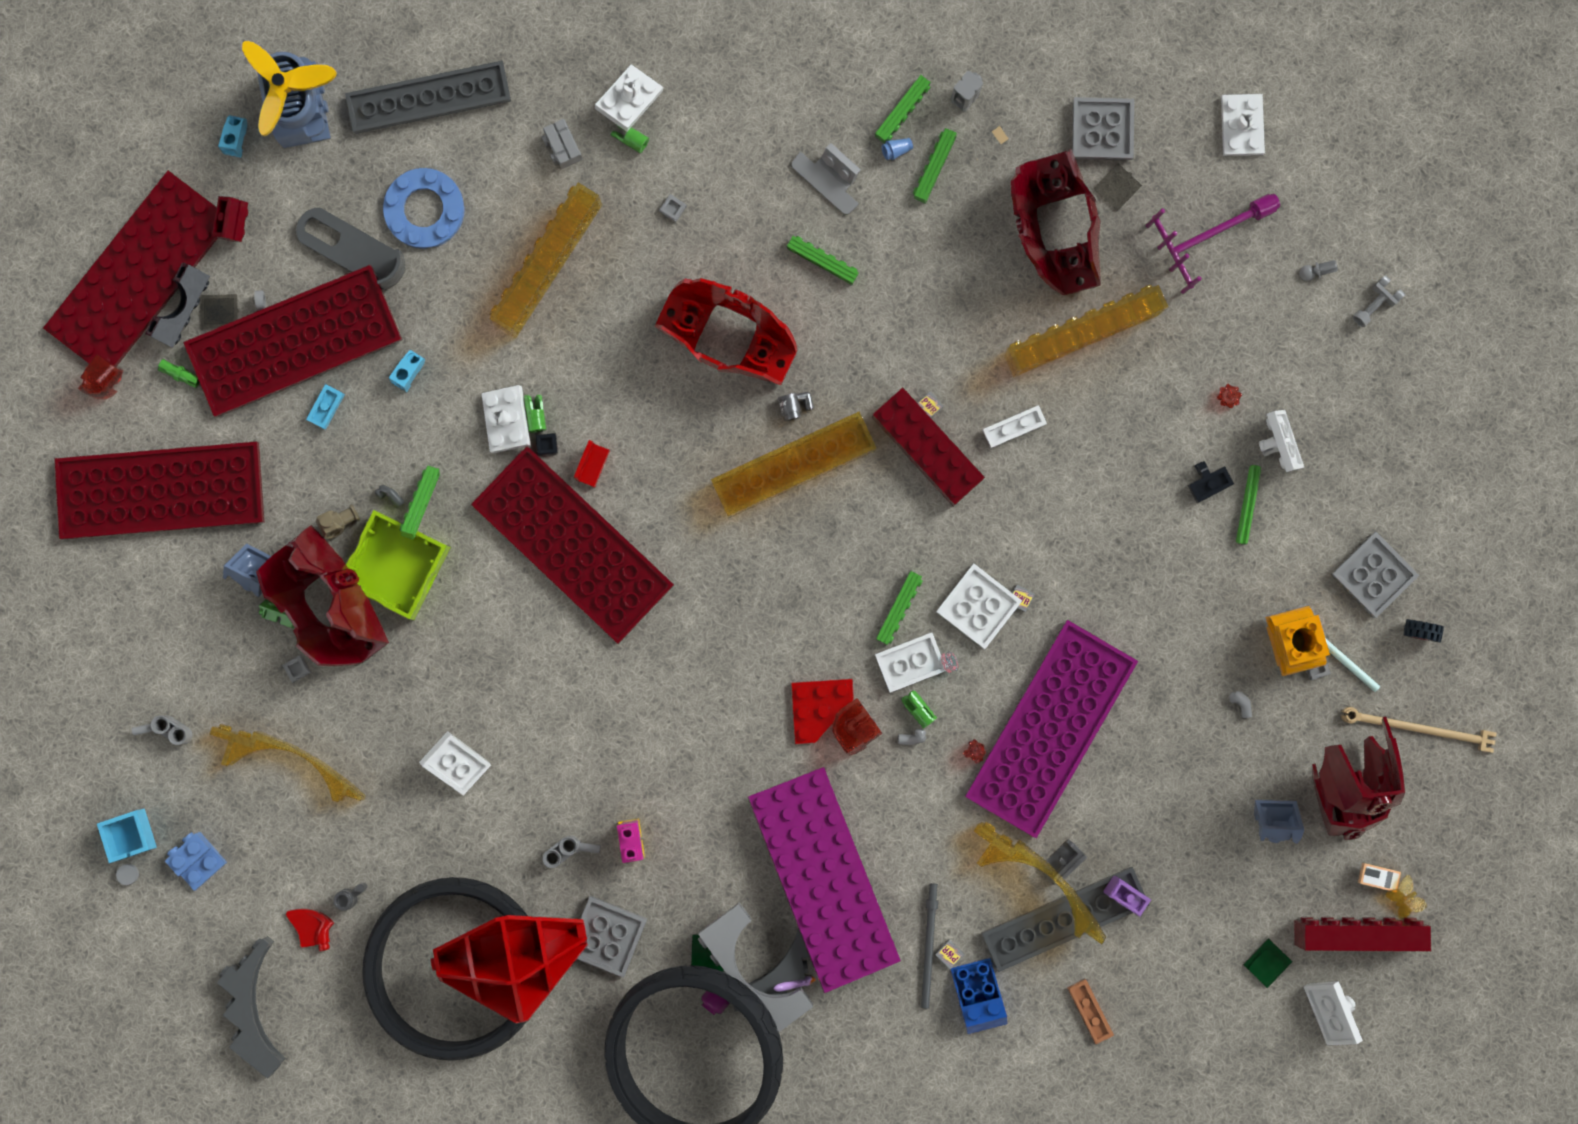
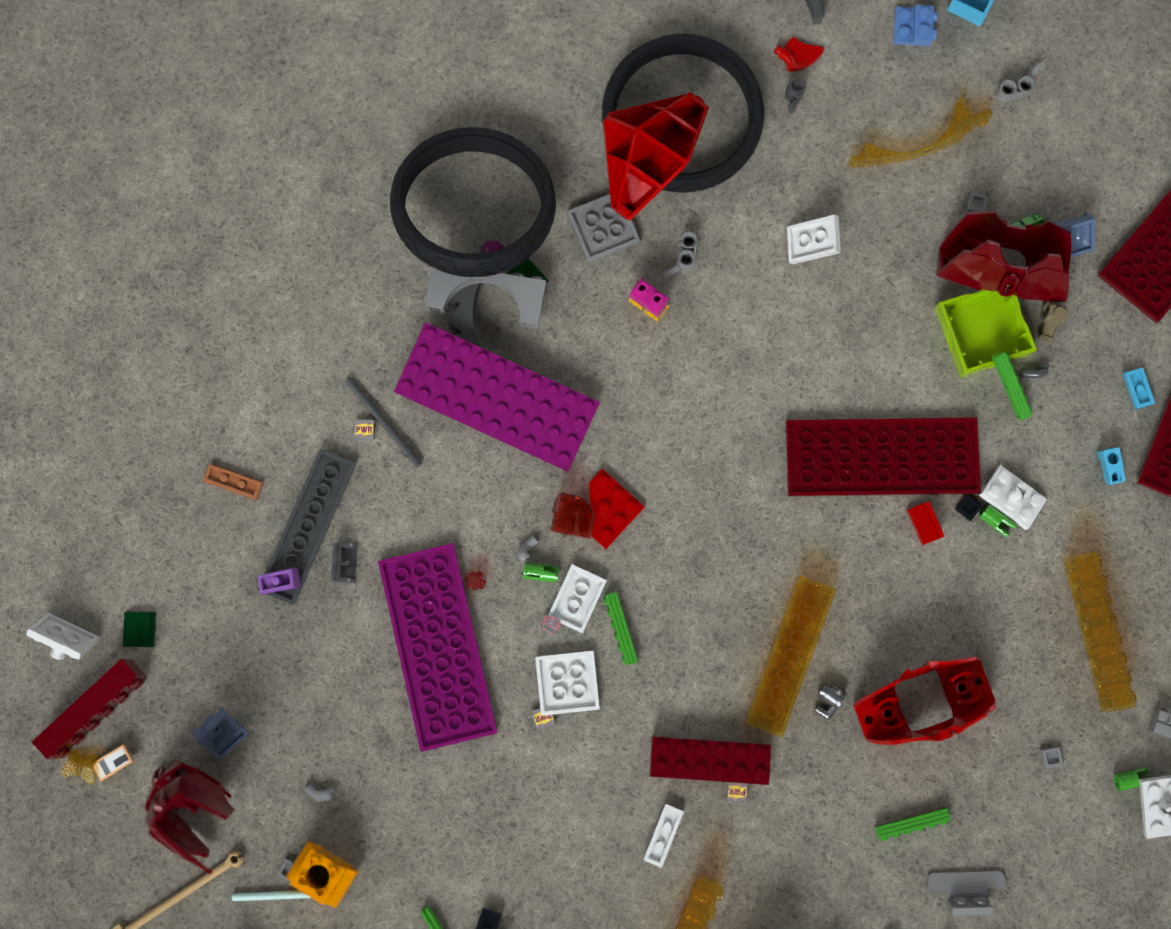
camera: 135 degrees right, 5 degrees down
(794, 984) = (455, 303): lavender piece -> none
(979, 996) = (318, 420): blue slope -> none
(1003, 850) = (393, 531): clear yellow slope -> none

